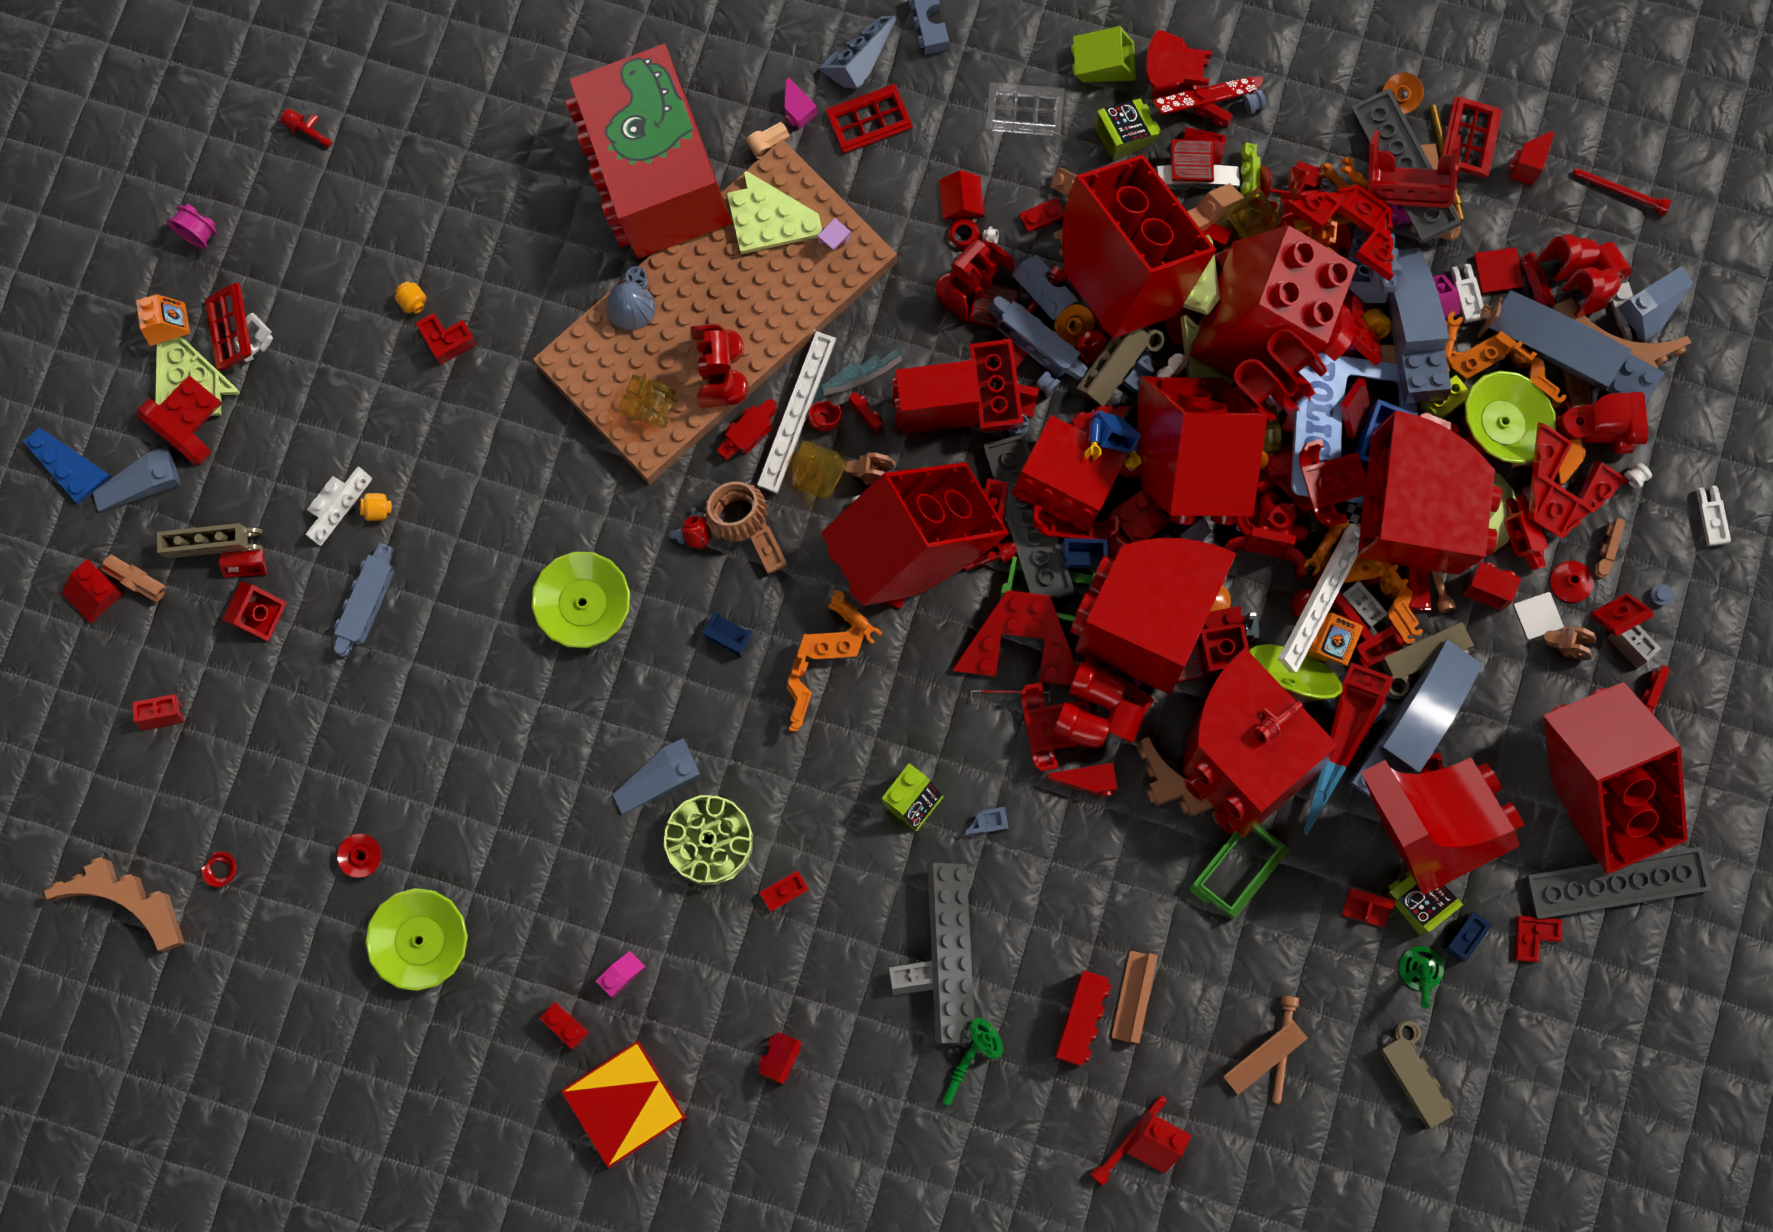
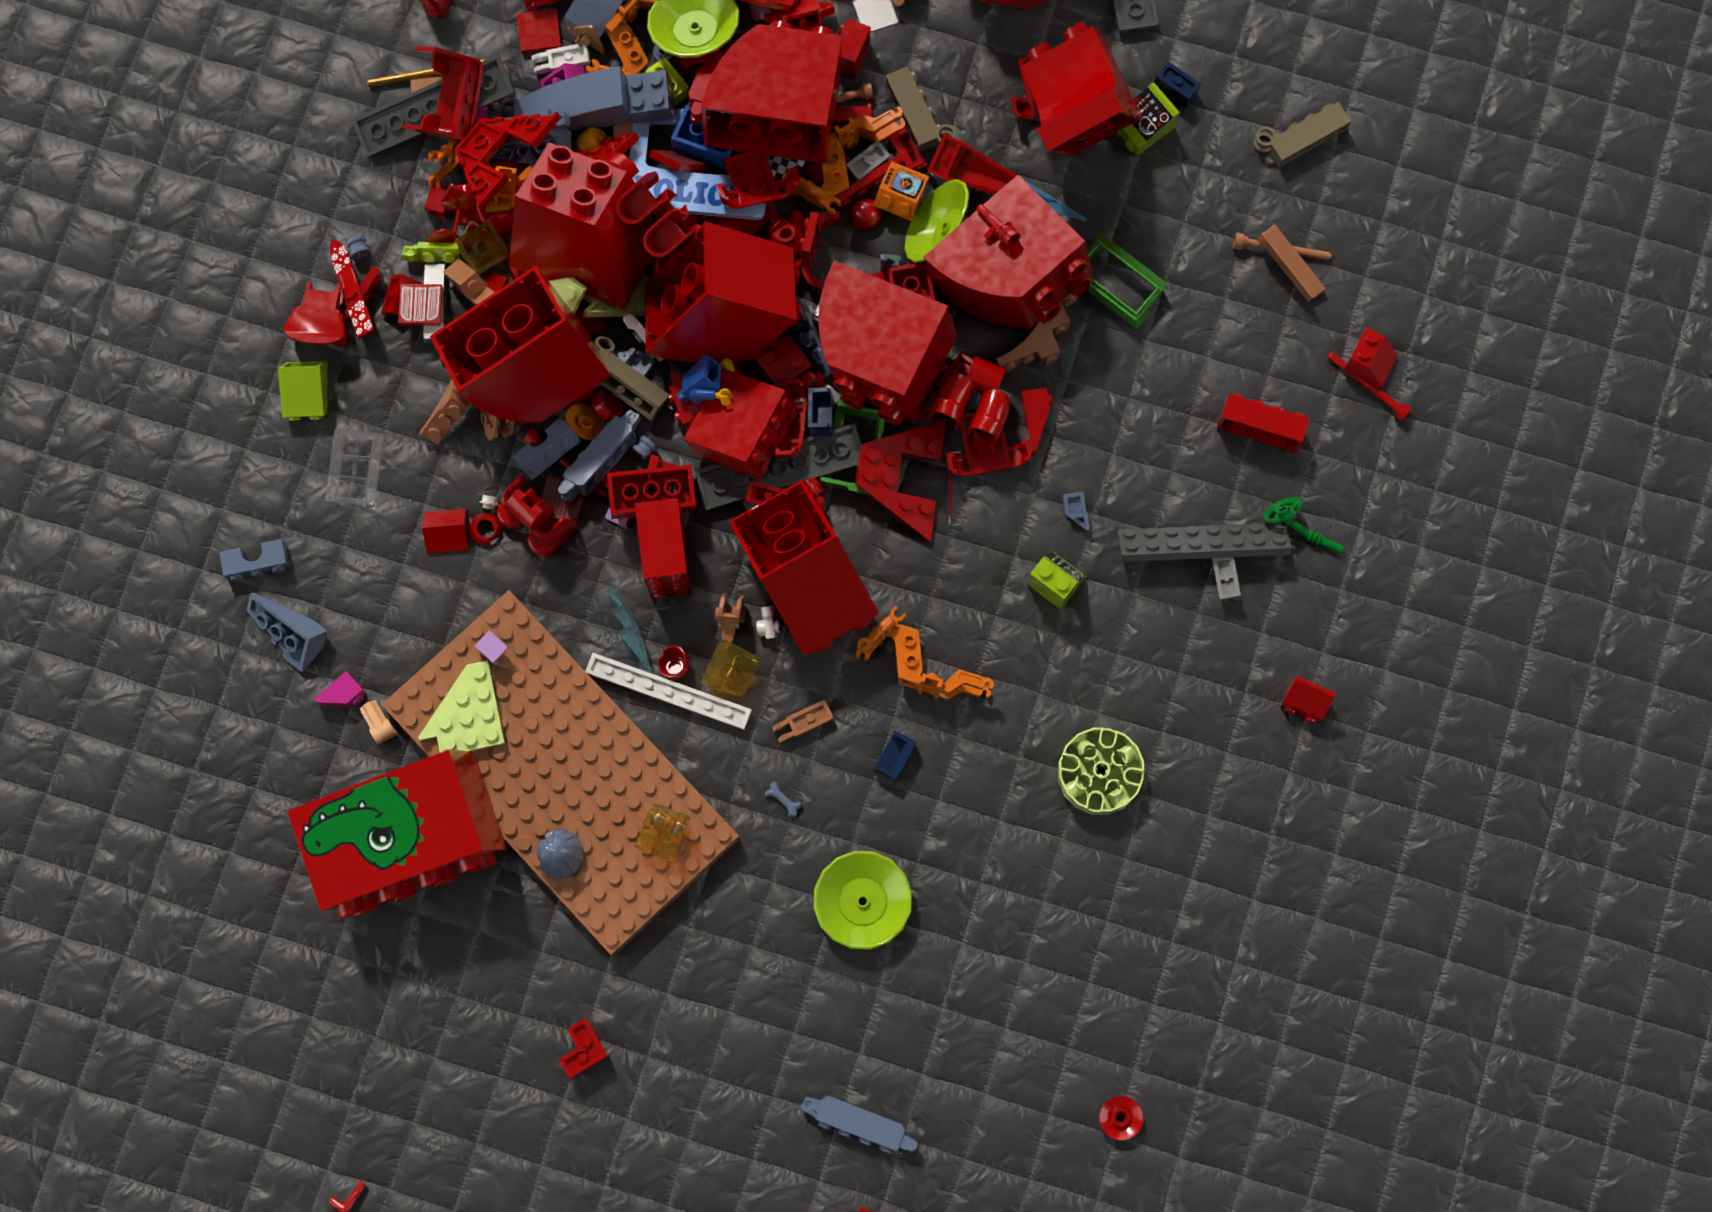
camera: 90 degrees left, 0 degrees up
(334, 503) = (756, 1161): white bracket -> none
(375, 507) = (762, 1116): light orange head -> none
(394, 933) = (1227, 1048): lime dish -> none
(410, 297) = (538, 1088): light orange head -> none
(565, 1025) = (1282, 907): red brick -> none
(620, 974) = (1231, 855): dark pink slope -> none
(623, 1104) = (1355, 848): tile -> none
(637, 274) = (527, 845): sand blue wheel -> none
(662, 774) = (1035, 820): sand blue wedge -> none
(696, 532) = (792, 787): red head -> none
(714, 363) = (638, 754): red piece -> none
(730, 493) = (794, 747): nougat gear -> none
(749, 430) = (687, 738): red hinge -> none
(784, 891) = (1147, 700): red plate -> none
(863, 101) = (339, 627): red piece -> none
(871, 418) = (676, 618): red plate -> none
(1042, 215) = (468, 452): red plate -> none
(1126, 128) = (382, 368): slope -> none
(1134, 997) = (1238, 377): nougat panel -> none
(1321, 600) = (870, 192): white plate -> none
(1367, 907) = (1151, 171): red panel -> none
(1406, 82) = (348, 99): orange dish -> none
(1422, 972) = (1206, 124): green dish -> none
(1423, 715) = (984, 116): sand blue slope -> none
(1490, 134) = (398, 65): red piece -> none
(1530, 932) = (1170, 33): red tile -> none

